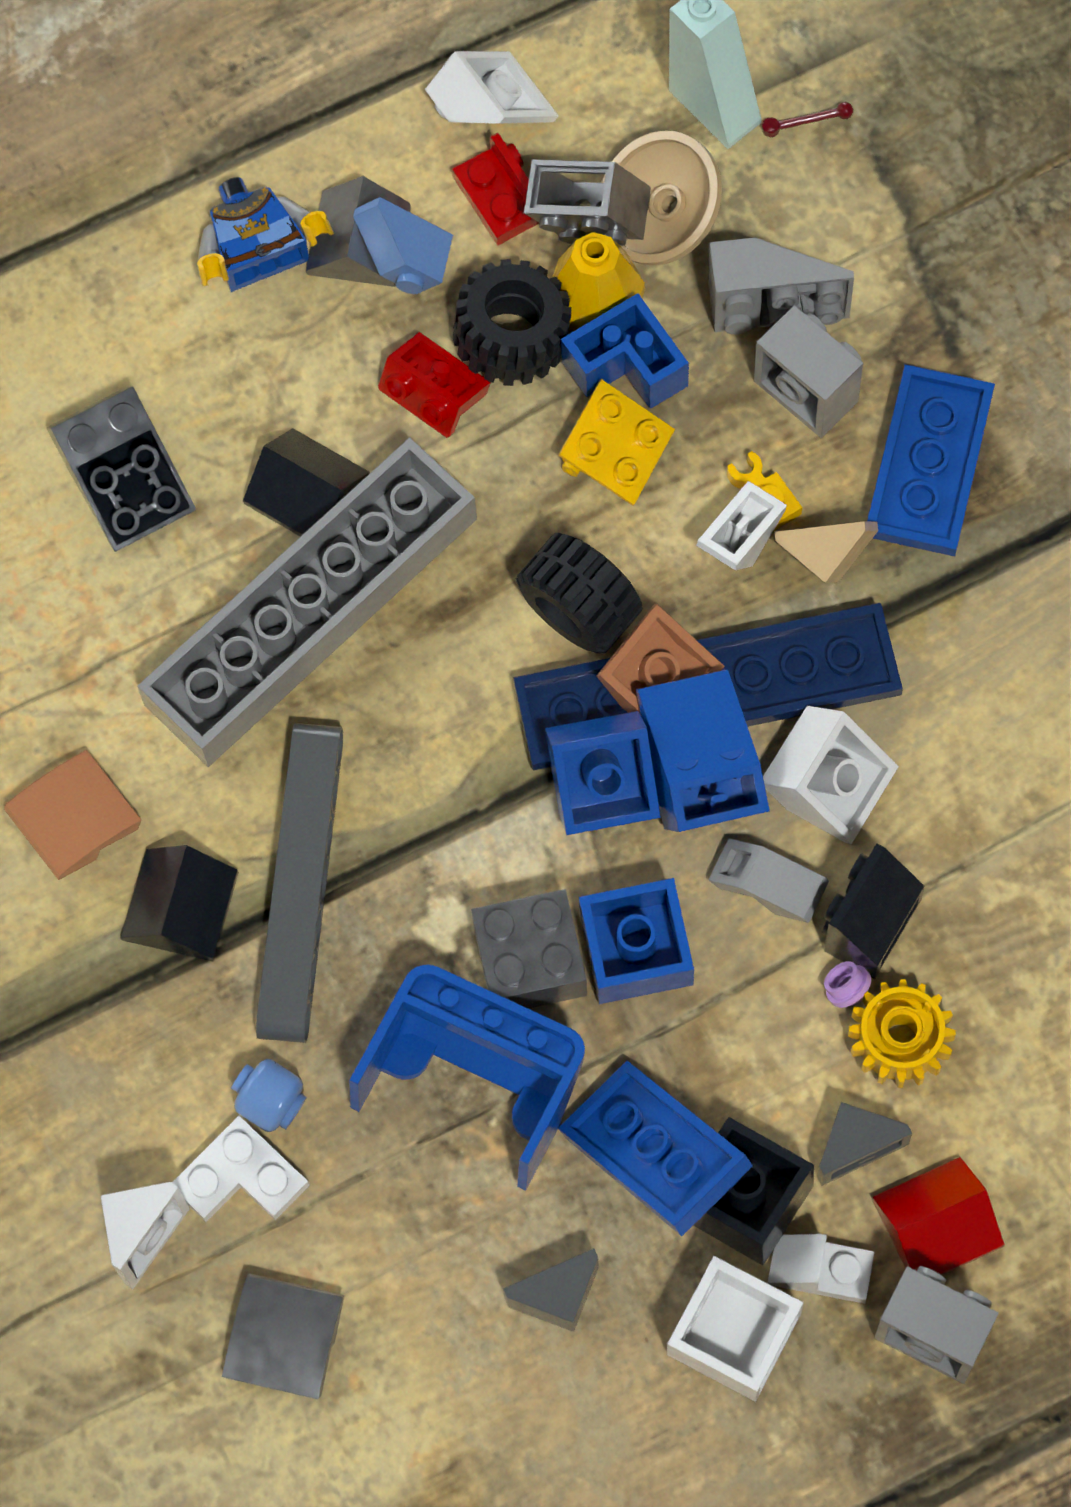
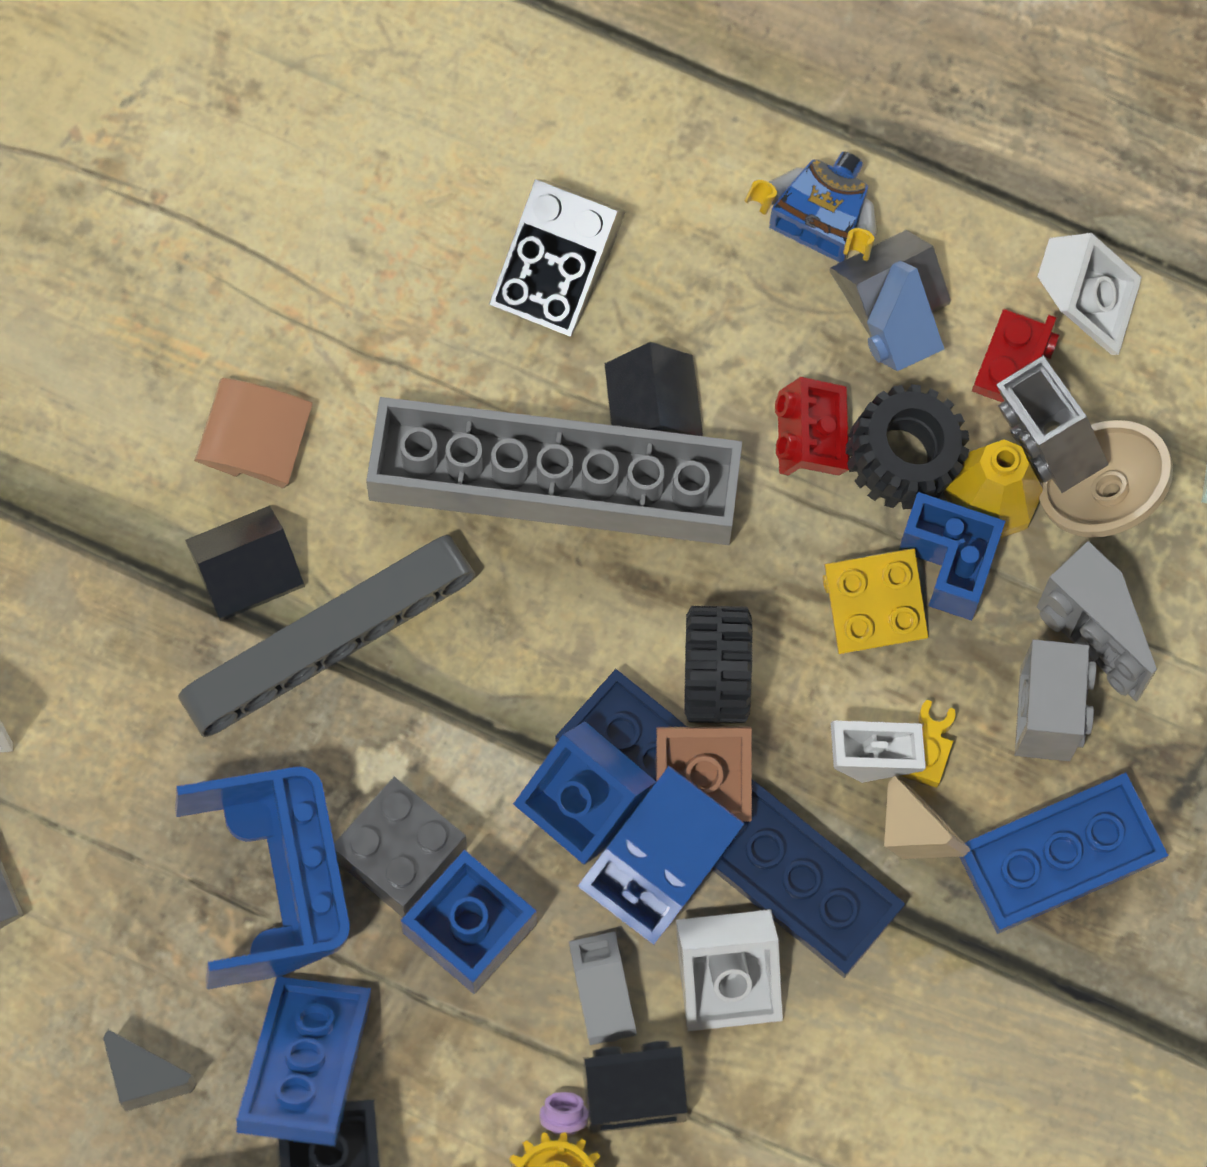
camera: 45 degrees right, 0 degrees up
(239, 1161) = (73, 758): white plate -> none
(268, 1095) = (137, 740): medium blue head -> none

